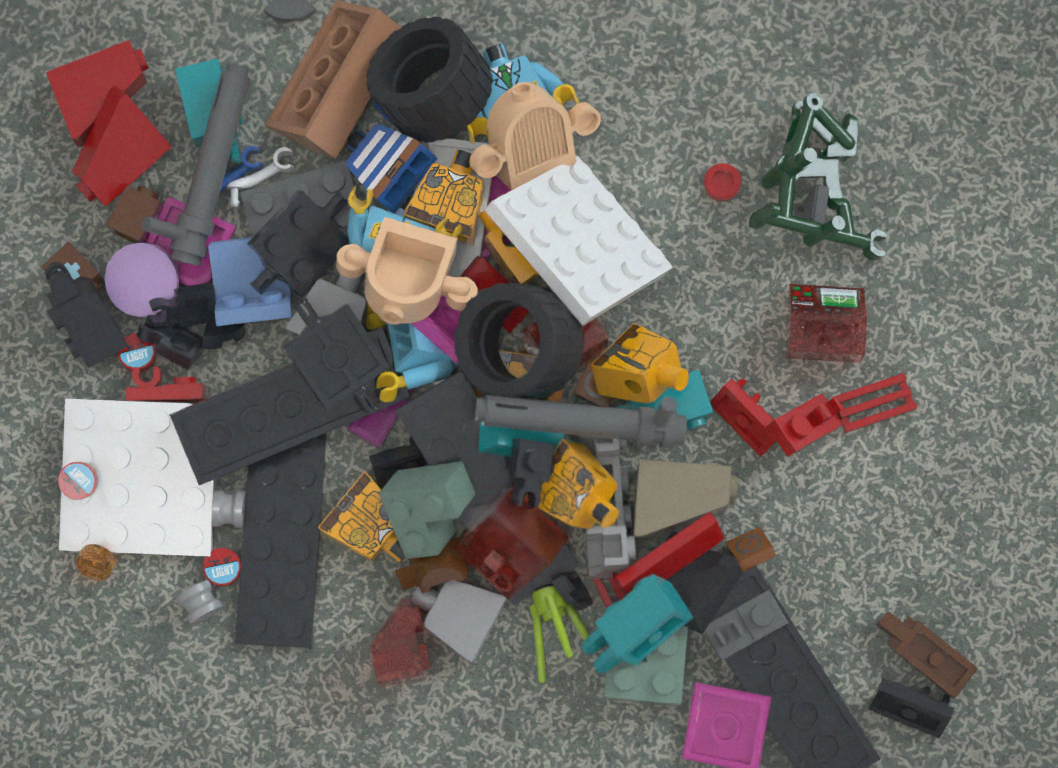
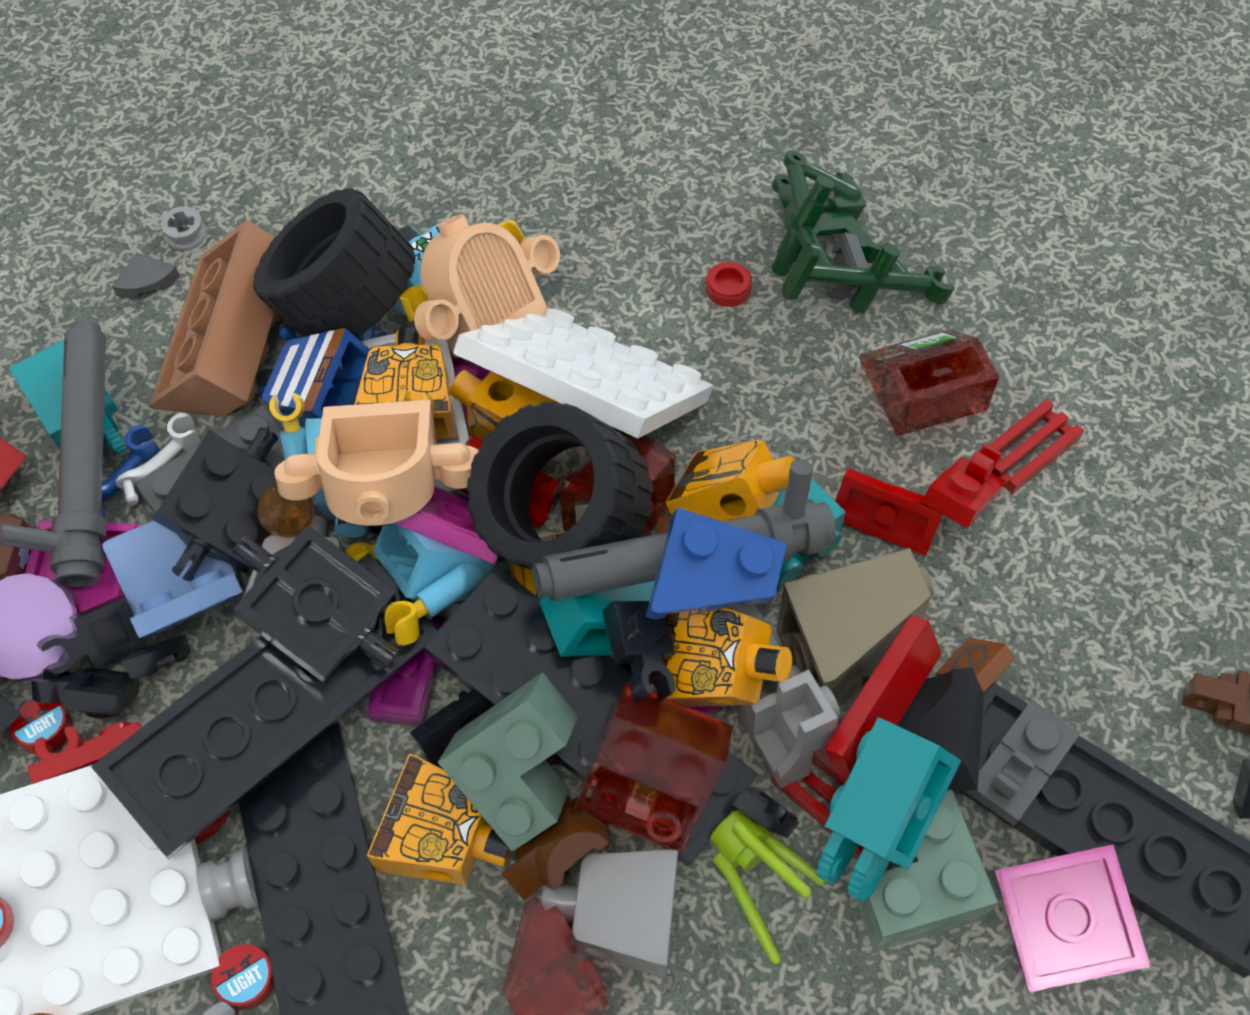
camera: 20 degrees left, 20 degrees down
(328, 271) = (284, 516): none -> clear orange tile
(589, 443) = (713, 566): none -> blue wing

